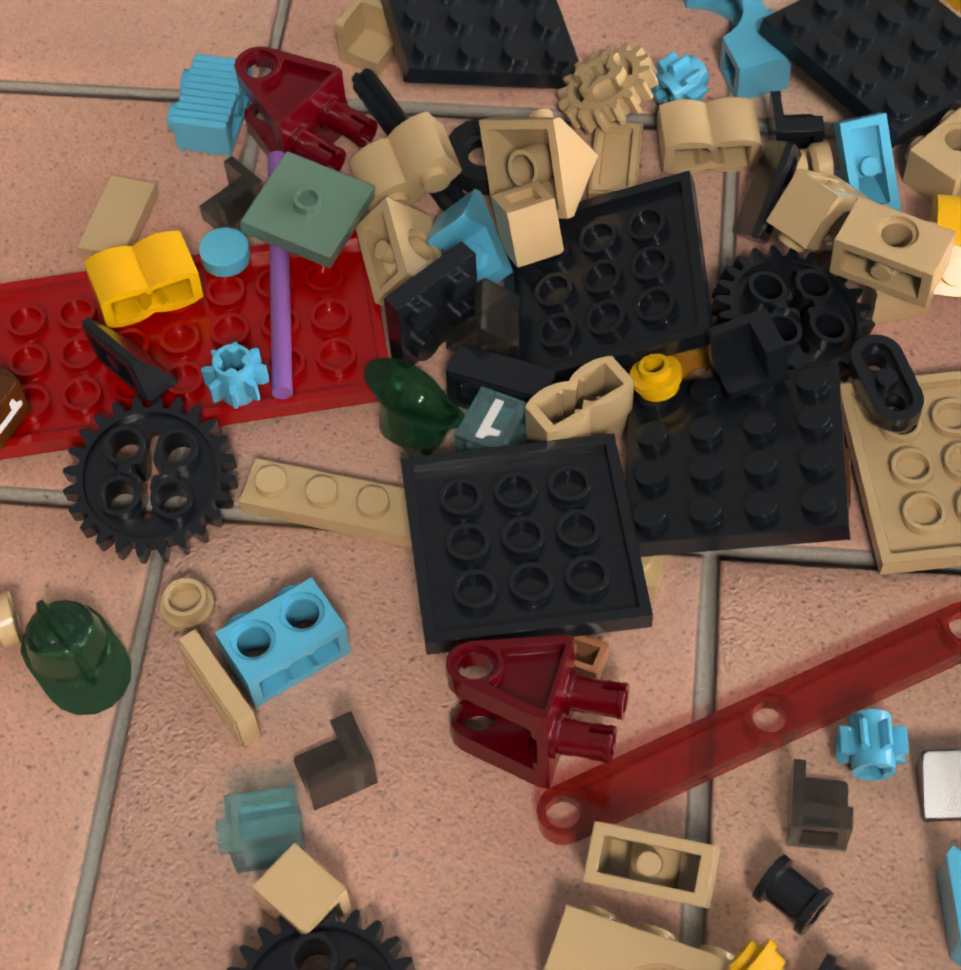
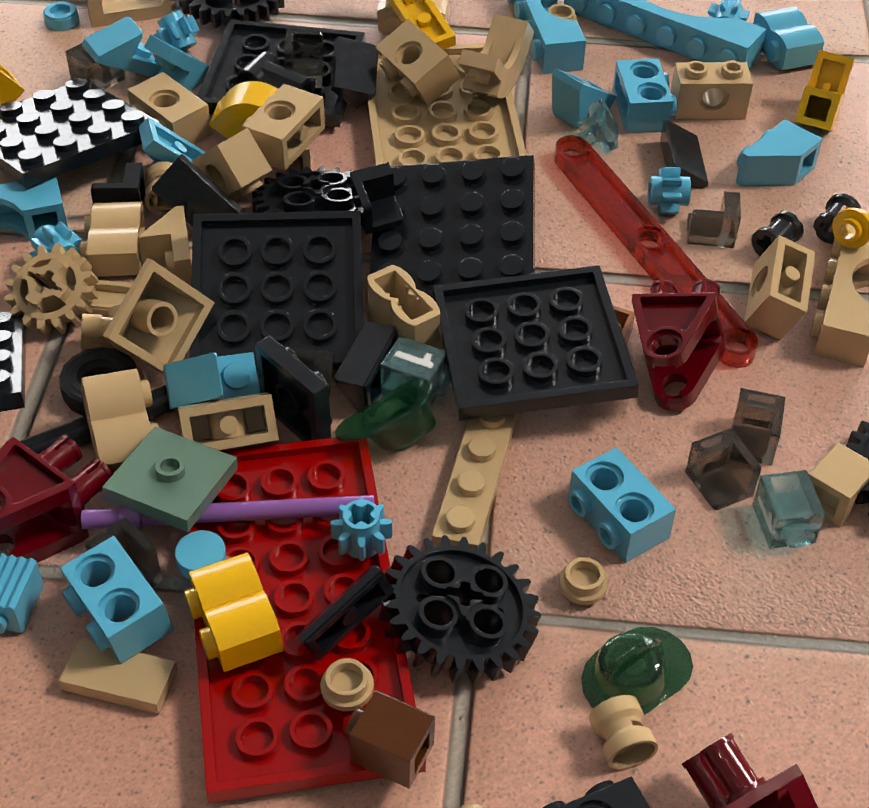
camera: 95 degrees left, 10 degrees down
(57, 376) = (347, 685): none -> tan plate
(172, 189) = (121, 596): none -> medium azure brick
(219, 688) = (667, 546): tan tile -> none
(405, 816) = (759, 423): none -> clear smoke panel
(528, 223) = (217, 323): tan panel -> none
(657, 377) = (375, 252): yellow plate -> none
(718, 184) = (168, 244): none -> tan slope
(888, 387) = (396, 148): black plate -> none

